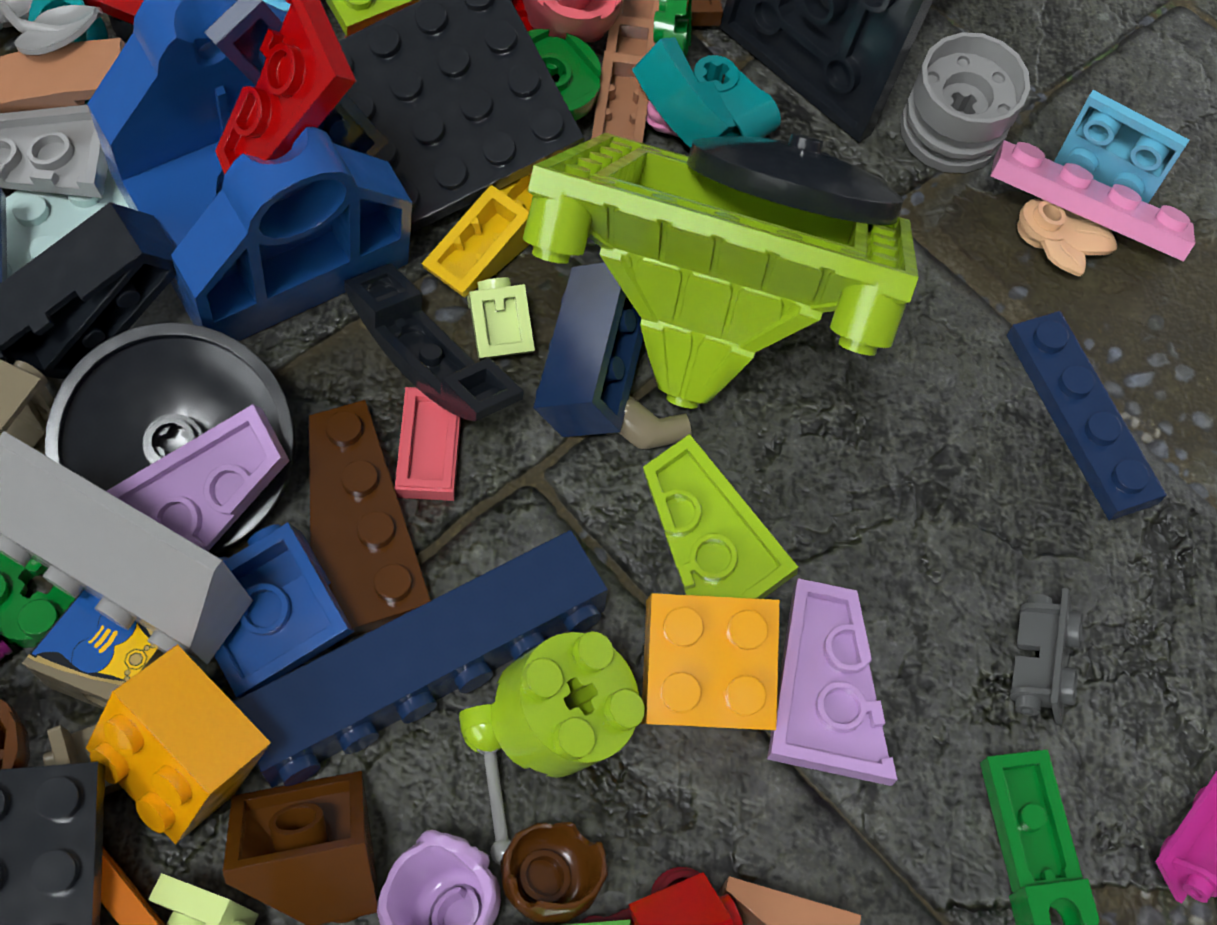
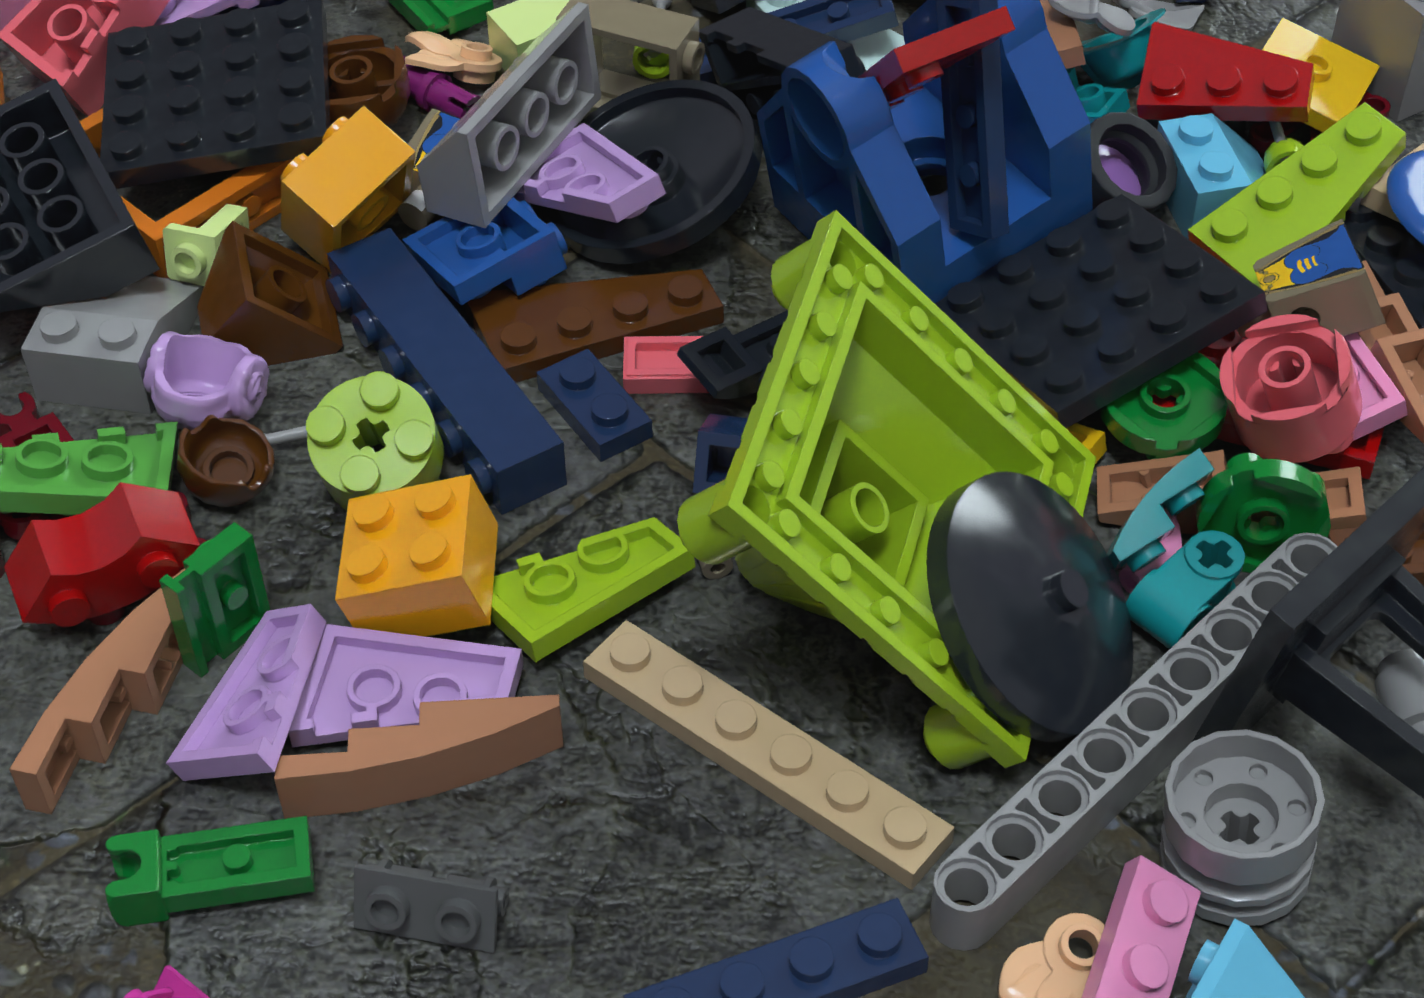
camera: 95 degrees right, 15 degrees down
(476, 522) = (594, 405): none -> dark blue plate
(765, 847) = (216, 598): none -> green plate
(865, 813) = (254, 702): none -> lavender wing
(869, 412) = (770, 754): none -> tan plate
(907, 646) = (397, 764): none -> nougat slope
(942, 216) = (1126, 741): none -> light grey beam

